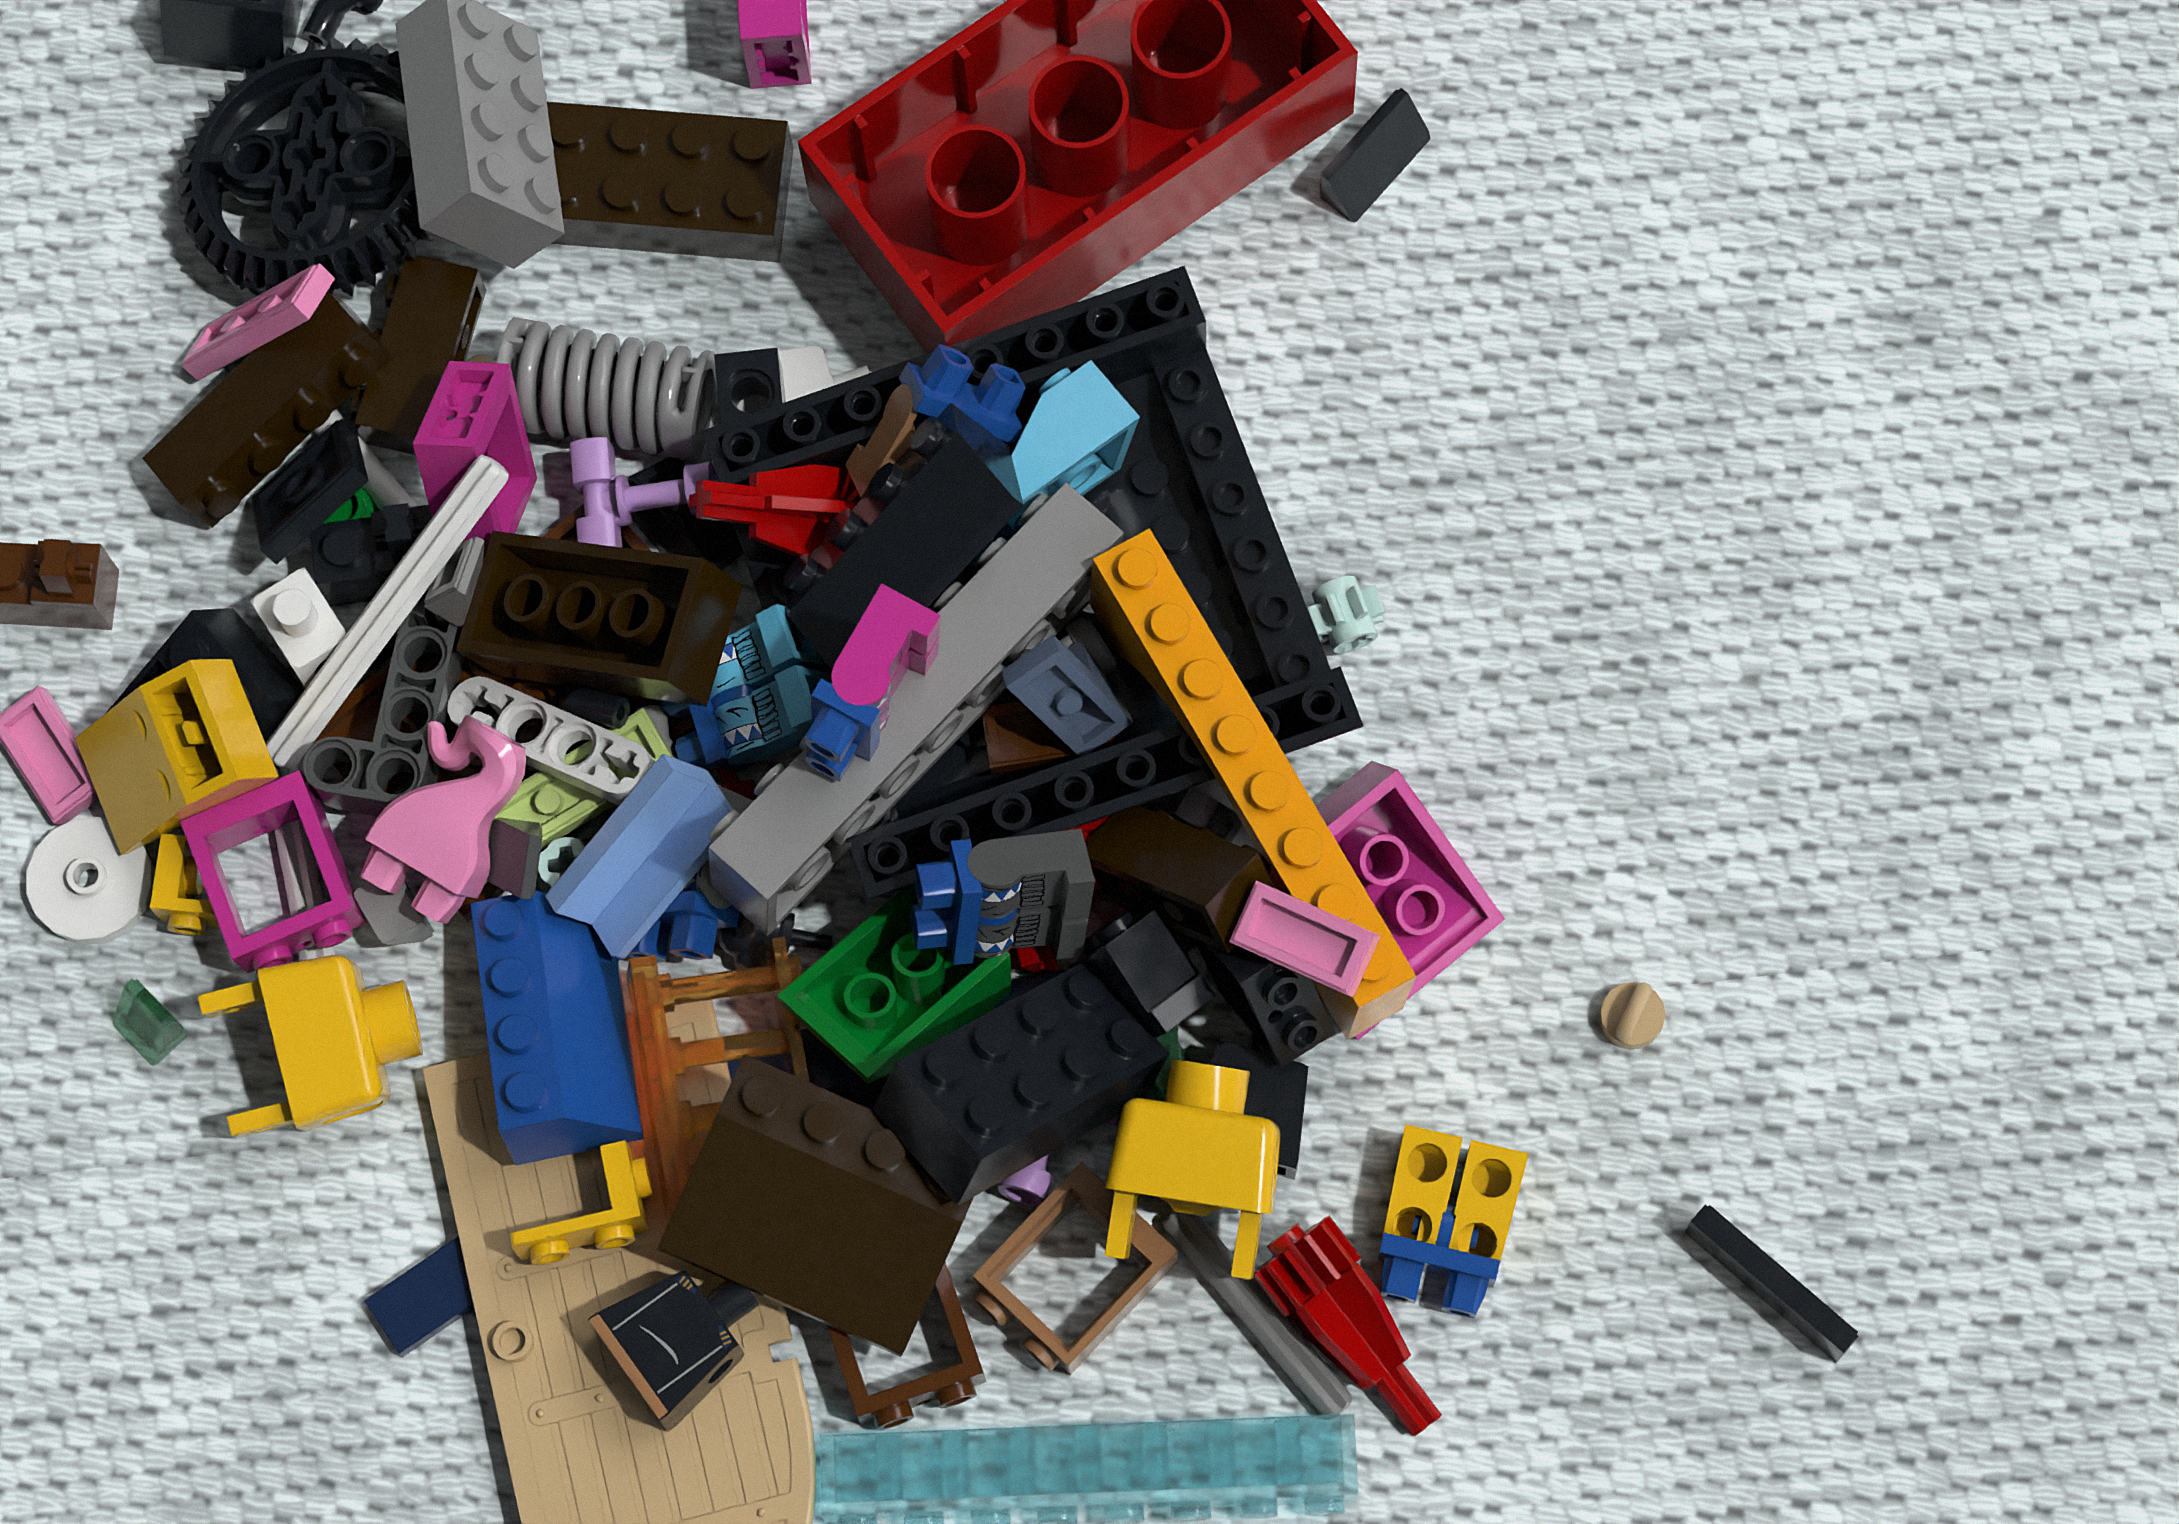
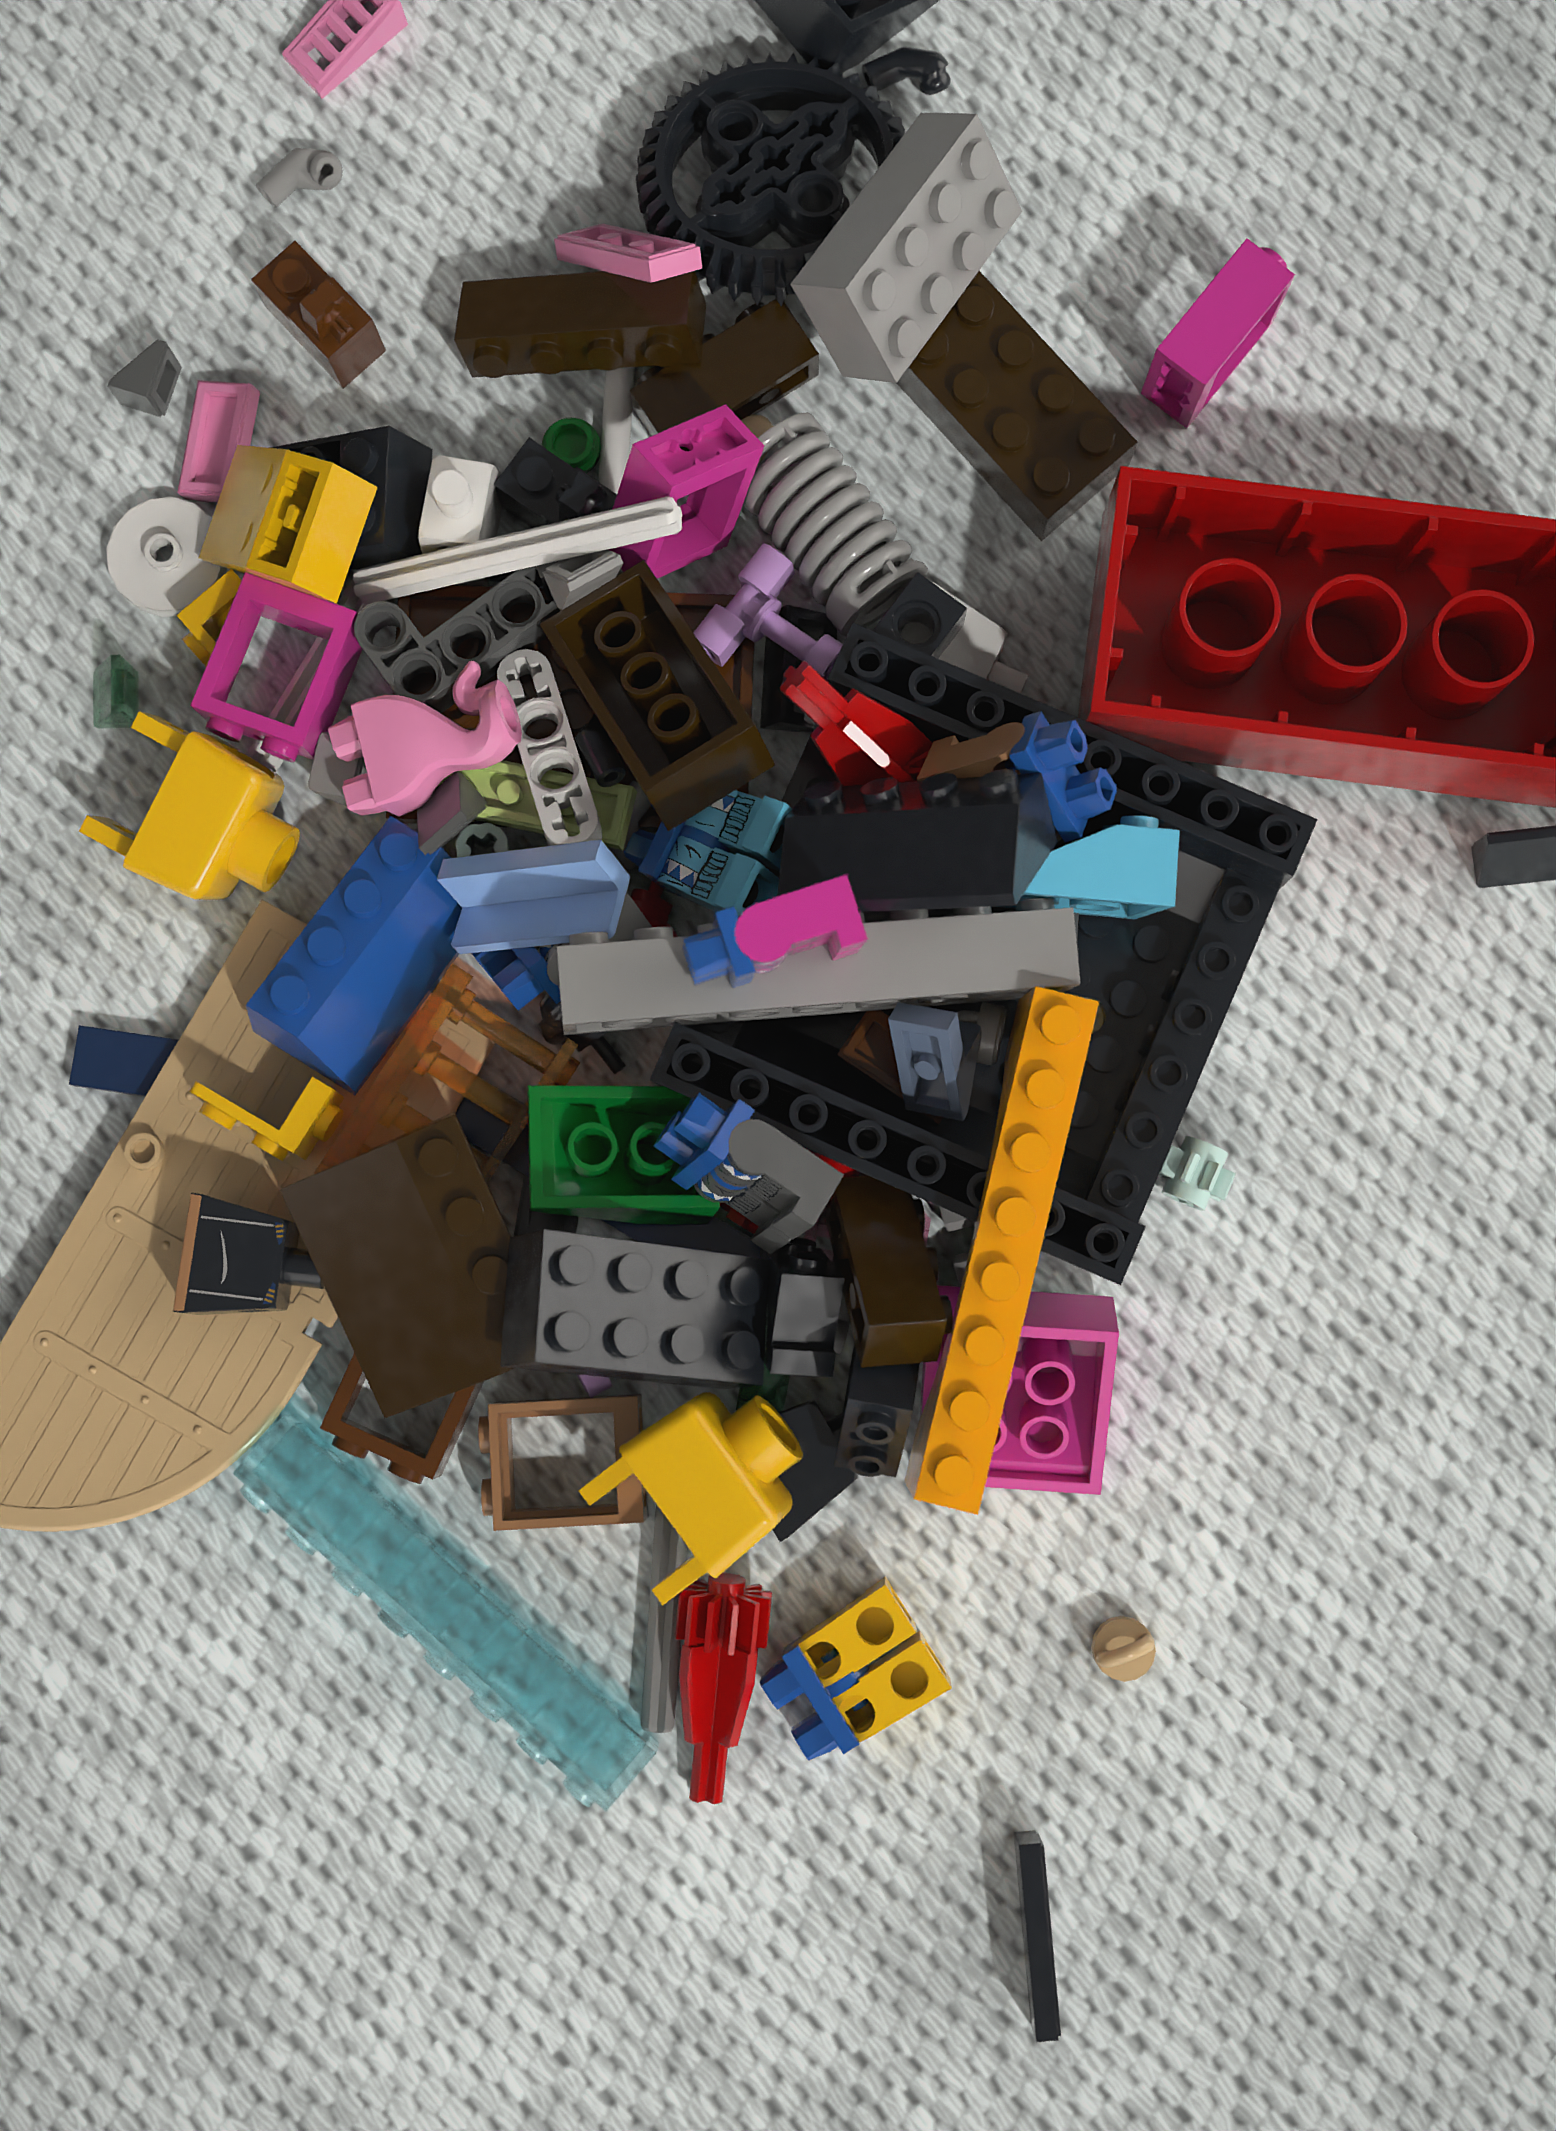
camera: 45 degrees right, 10 degrees up
(308, 490) = (552, 411): black plate -> none
(1305, 939) = (921, 1415): bright pink tile -> none

